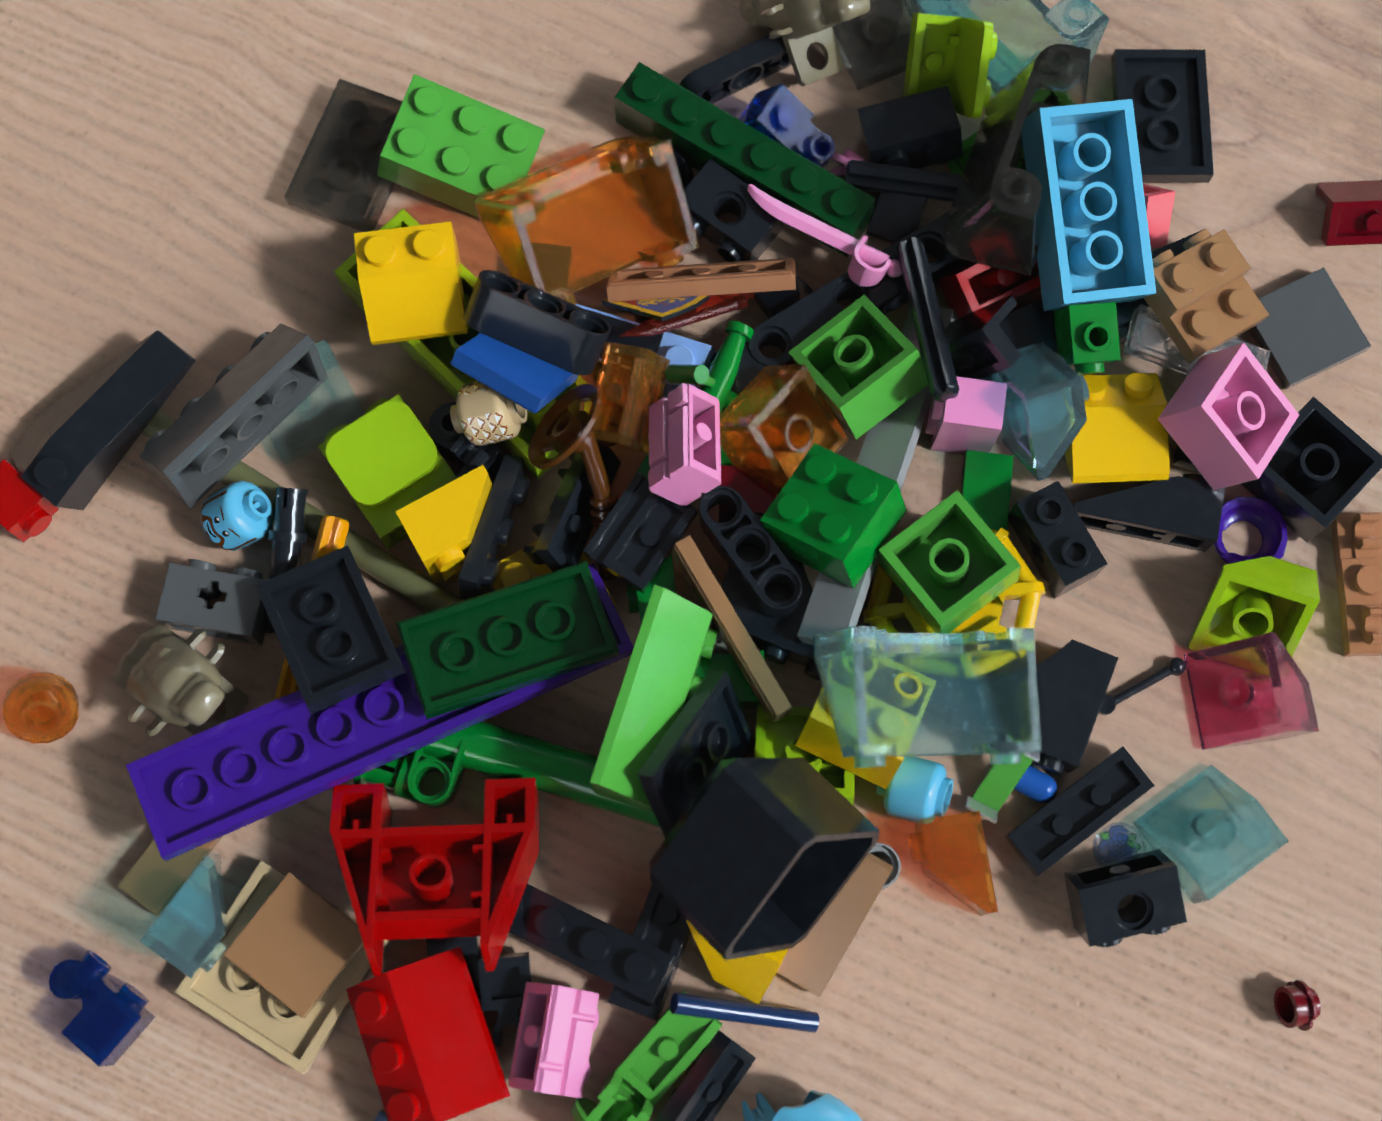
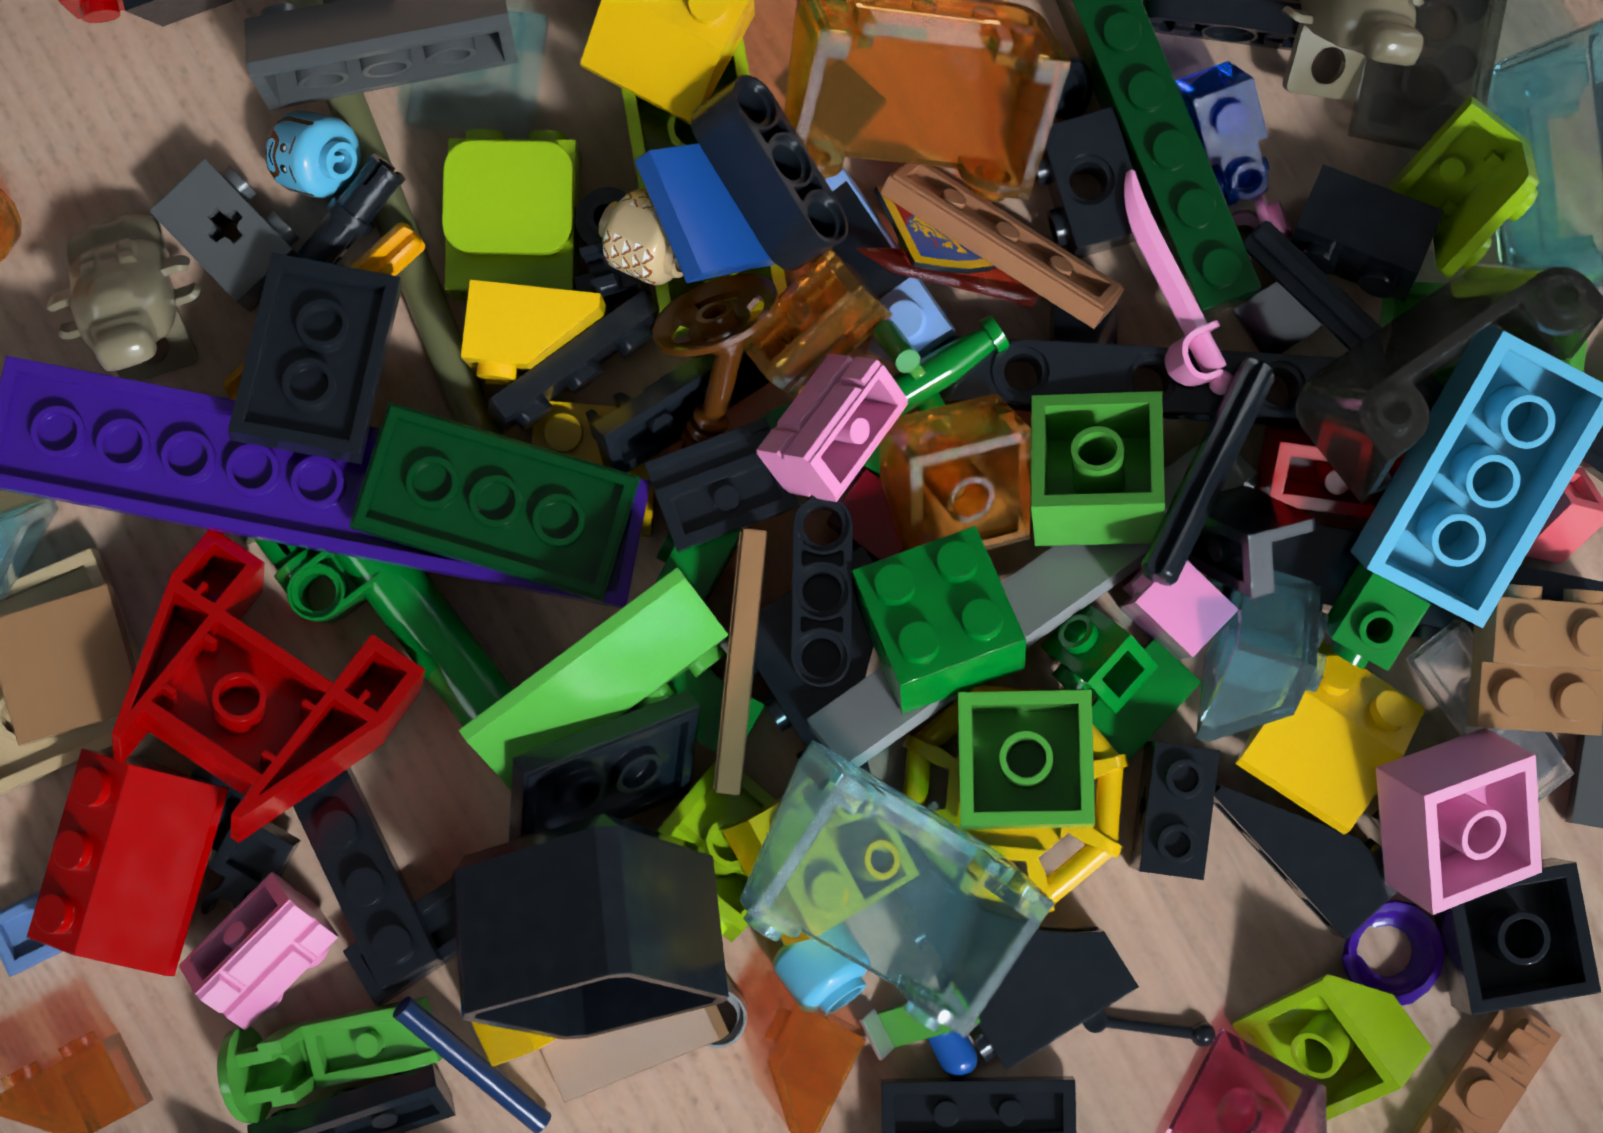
camera: 40 degrees right, 10 degrees up
(941, 472) = (1098, 657): none -> green brick

